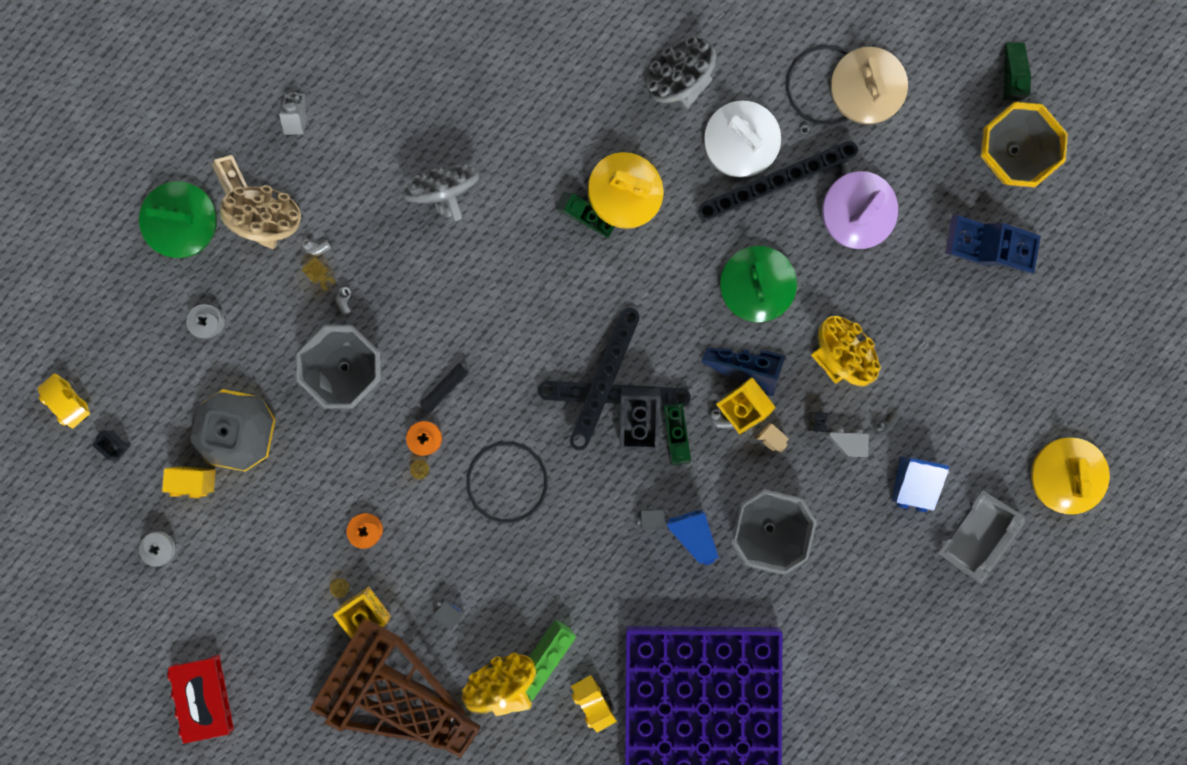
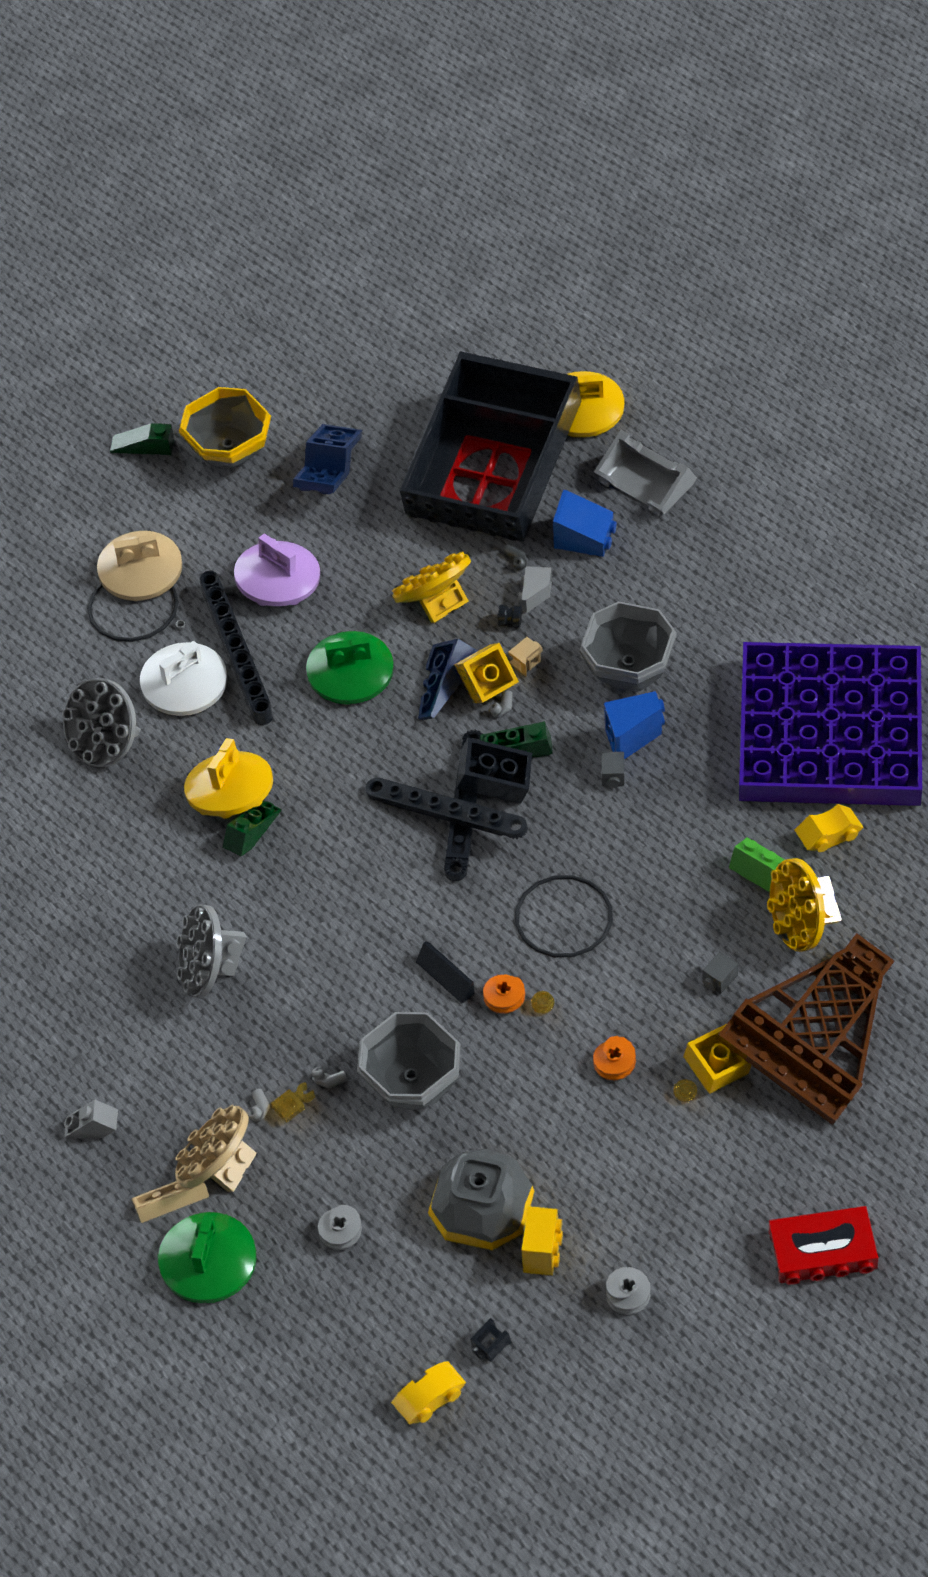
camera: 85 degrees left, 35 degrees down
(1049, 403) = (496, 409): none -> black panel

